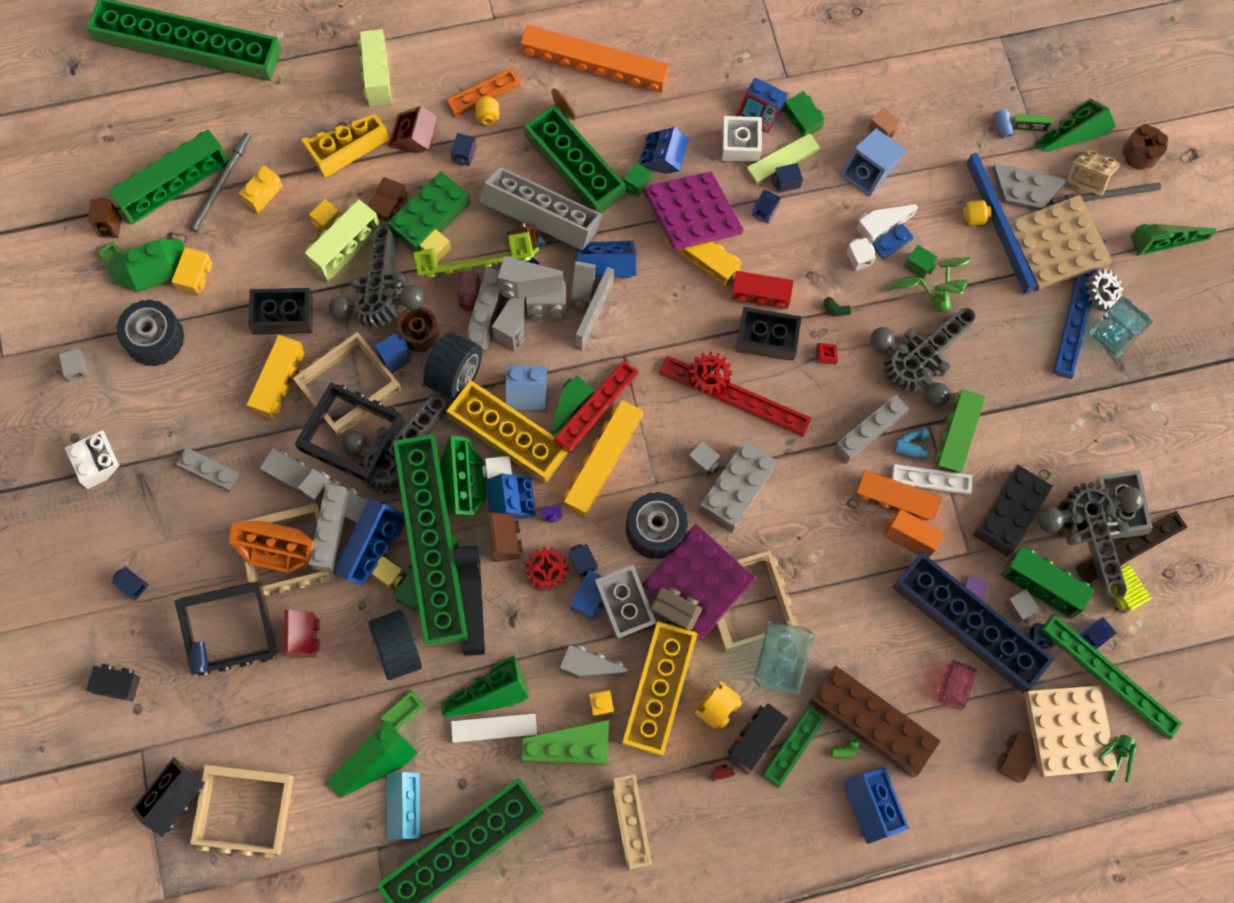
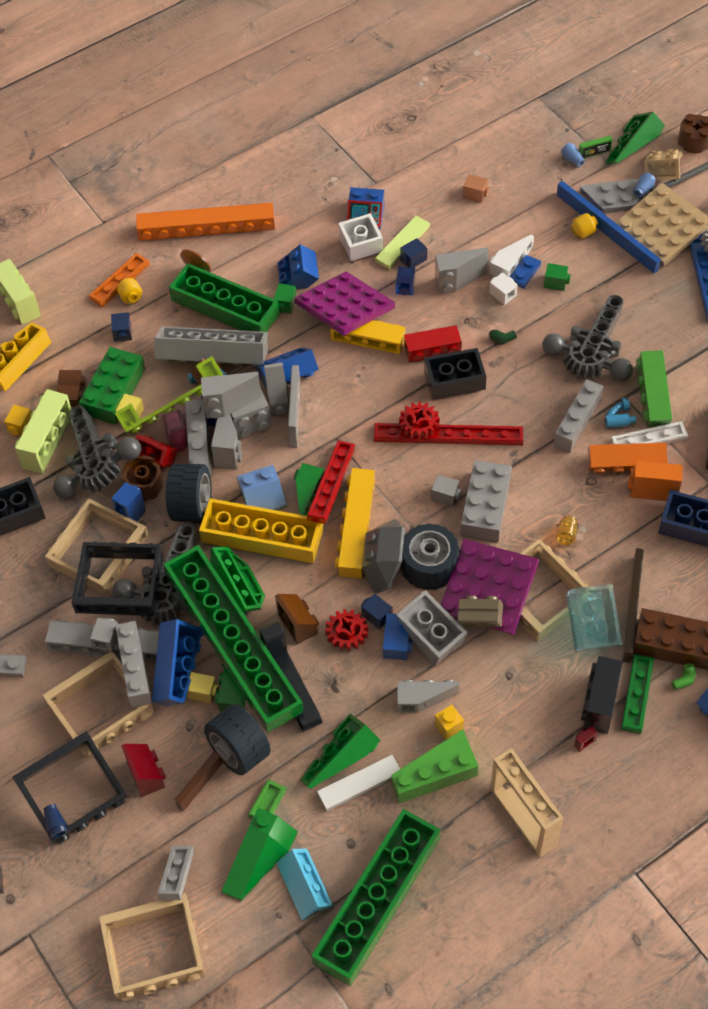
camera: 15 degrees left, 15 degrees down
(168, 797) = (75, 958): black brick -> none
(271, 545) = (85, 699): orange wedge -> none
(275, 377) = (27, 564): yellow brick -> none
(289, 751) = (176, 873): none -> light grey plate
(346, 667) = (198, 781): none -> reddish brown tile
(414, 130) = (70, 327): dark red slope -> none
(441, 303) = (159, 451): none -> red brick
(496, 466) = (266, 565): white brick -> none
(511, 495) = (287, 579): blue slope -> none
(551, 514) = (330, 583): dark purple plate -> none
(613, 504) = (383, 554): none -> dark grey wedge
(659, 689) = (496, 689): yellow brick -> none
(718, 705) = (555, 681): yellow brick -> none
(803, 114) = (404, 203): green brick -> none
(803, 549) = (567, 530): none -> clear yellow brick
(825, 216) = (459, 268): none -> light grey slope
(826, 353) = (511, 373): red tile -> none
(831, 654) = (633, 605): none -> dark brown tile
(872, 161) = (479, 218): medium blue slope -> none
(941, 296) = (587, 296): bright green plant -> none
(1060, 189) = (644, 184): none -> medium blue cone

